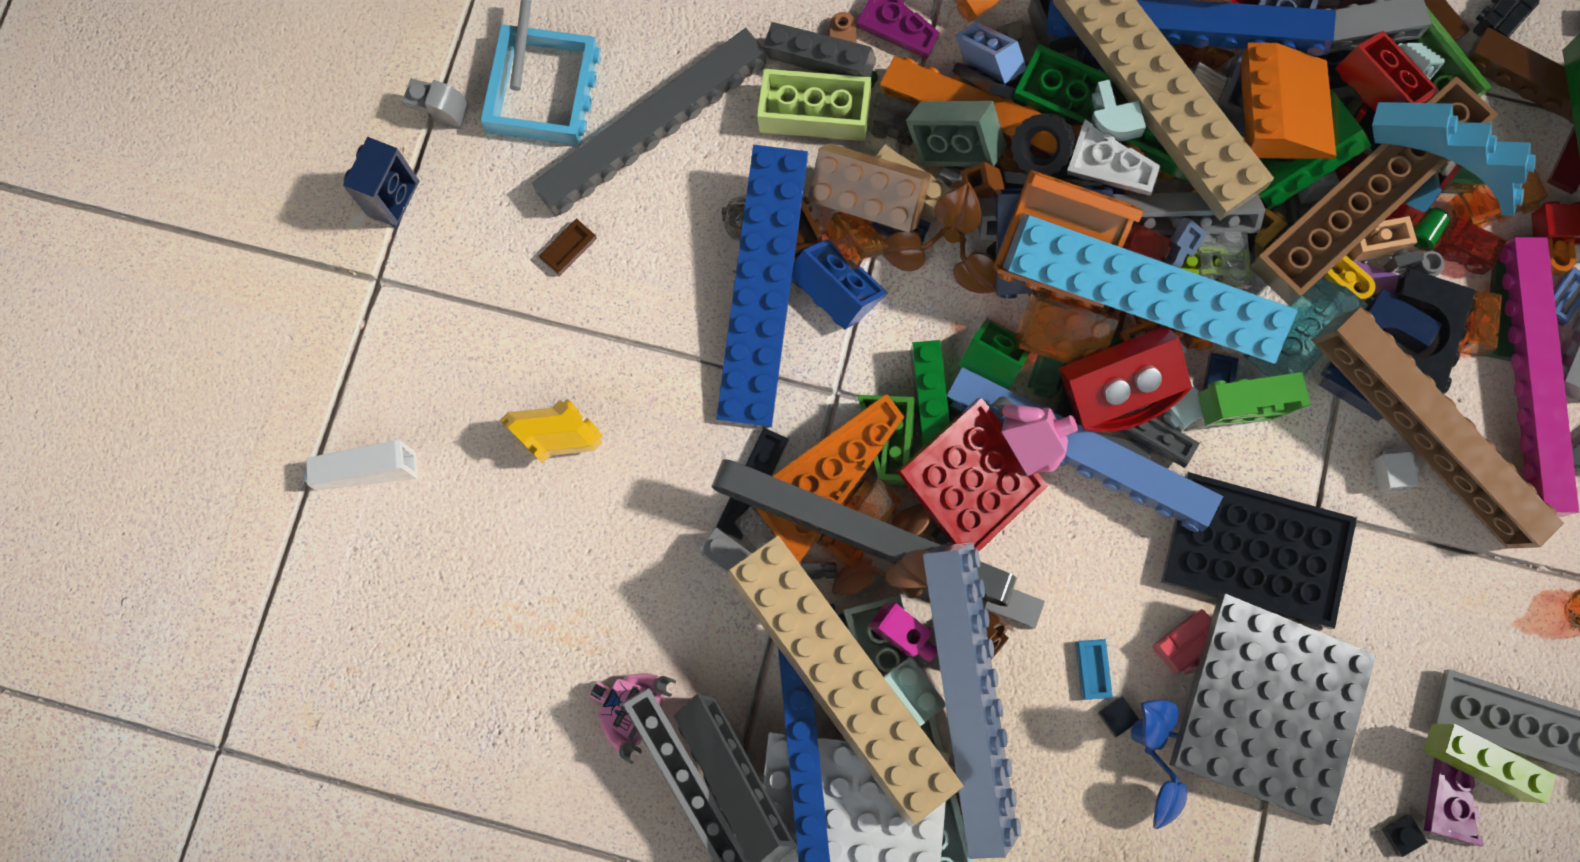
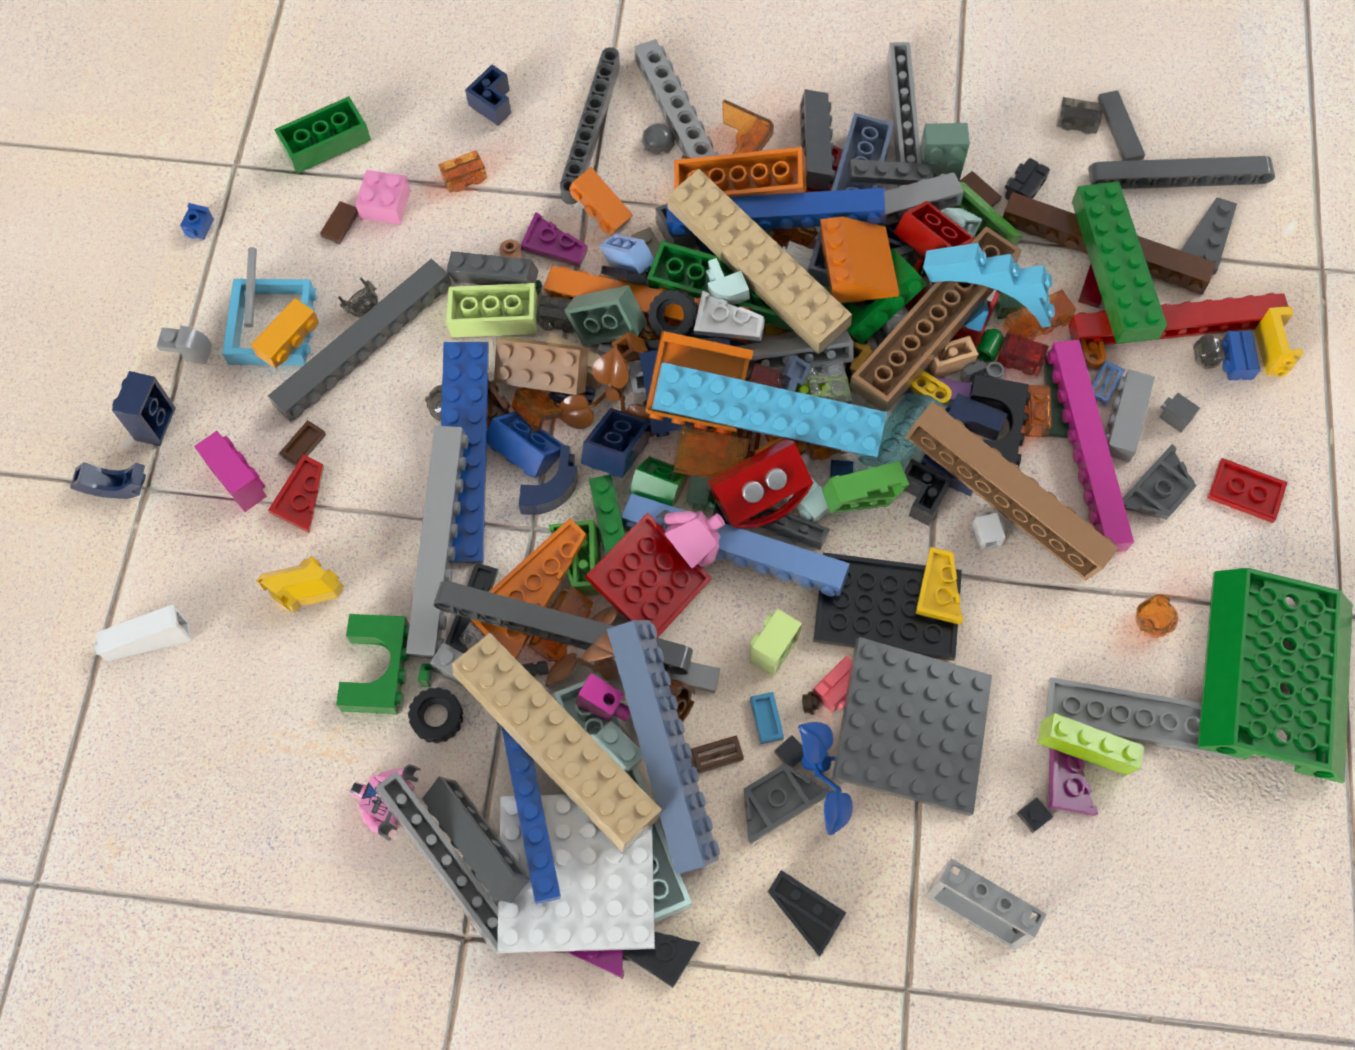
camera: 10 degrees left, 10 degrees down
(333, 268) = (109, 483): none -> dark blue arch
(481, 273) = (232, 470): none -> dark pink brick
(559, 106) = (285, 333): none -> light orange brick
(559, 312) = (299, 494): none -> red wing
(639, 578) = (385, 693): none -> green arch
(656, 73) = (361, 301): none -> clear smoke cap
(682, 597) = (428, 698): none -> black tyre
(691, 559) = (425, 675): none -> green tile
(721, 396) = (437, 539): none -> light grey brick
(862, 354) = (551, 495): none -> dark blue arch
(950, 300) = (615, 442): none -> dark blue brick
(1054, 702) = (722, 762): none -> reddish brown tile
(1097, 774) = (778, 799): none -> dark grey wing
(1118, 581) = (775, 641): none -> yellowish green brick
(1150, 660) = (810, 703): none -> dark brown plate
(1326, 541) = (939, 588): none -> yellow wing
(1331, 410) = (928, 487): none -> black brick

